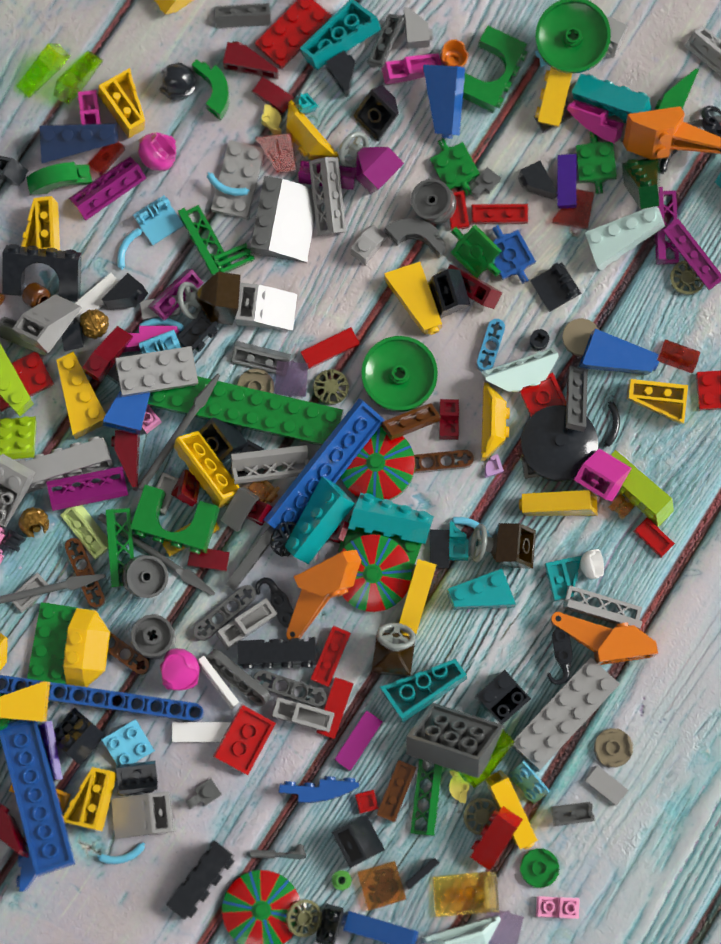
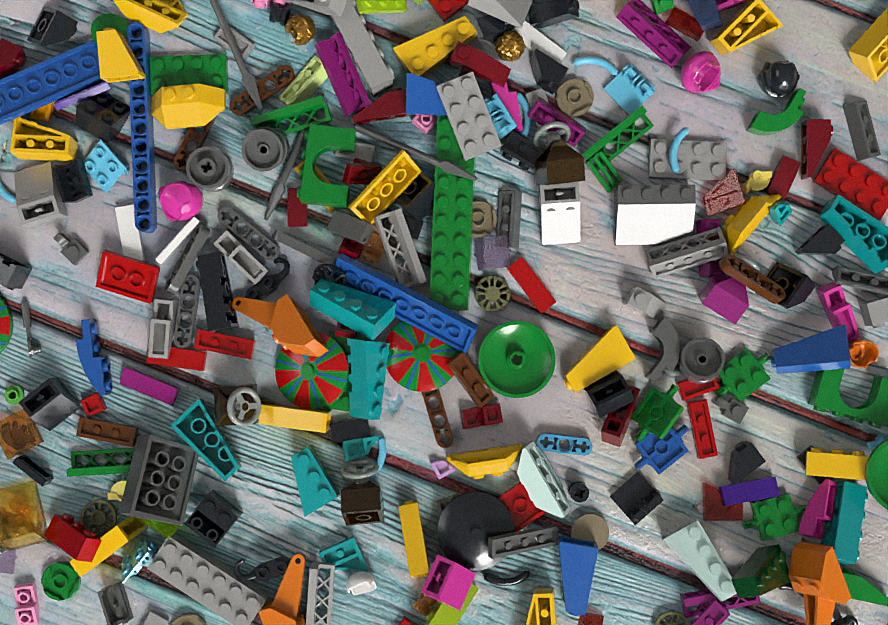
camera: 80 degrees right, 10 degrees up
(155, 273) = (574, 97): none -> dark tan tile
(364, 139) = (735, 267): none -> reddish brown beam

